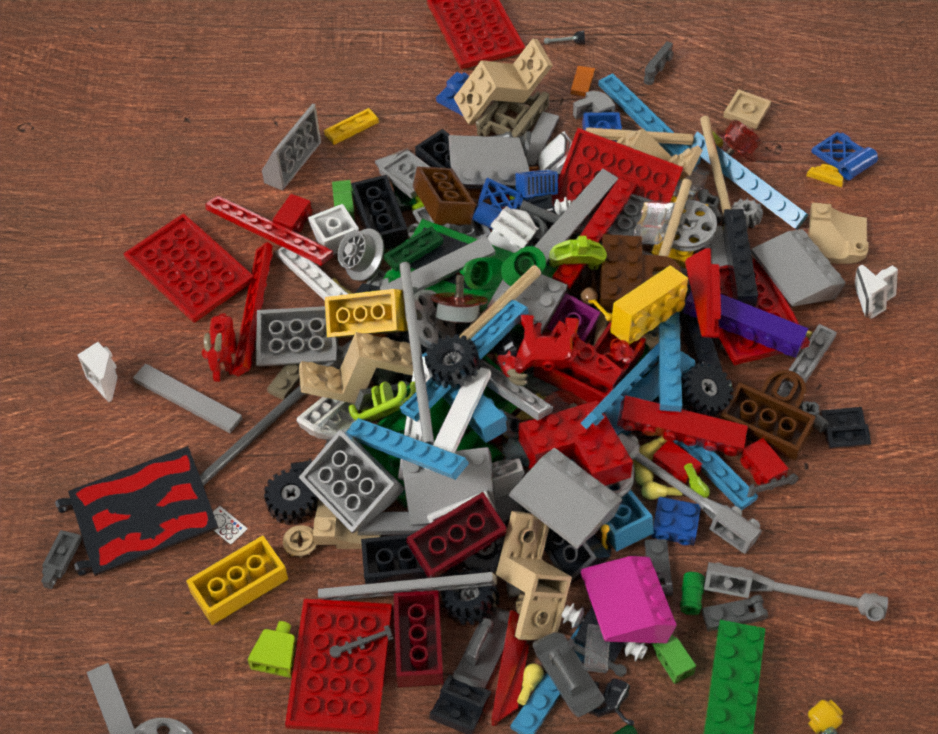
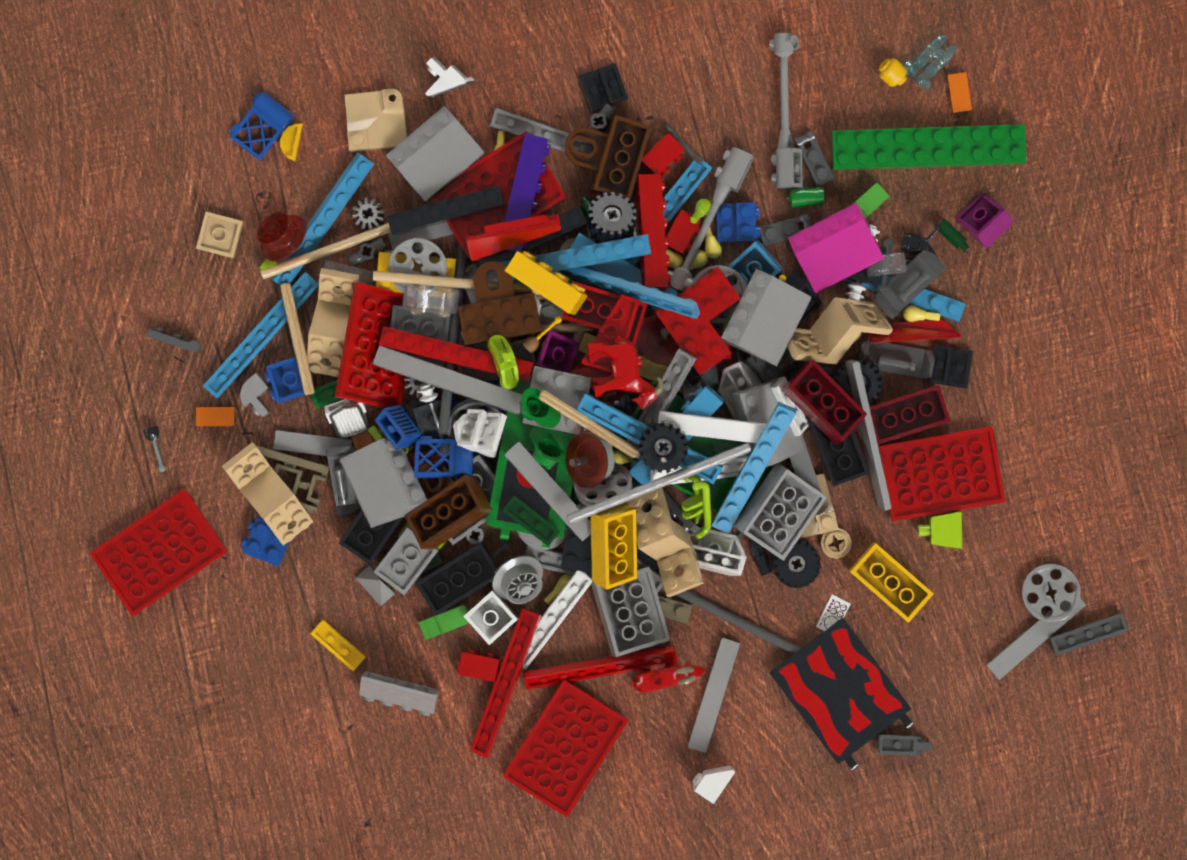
camera: 105 degrees left, 35 degrees up
(336, 651) = (934, 479): dark grey piece -> none
(622, 352) = (598, 298): red plant -> none

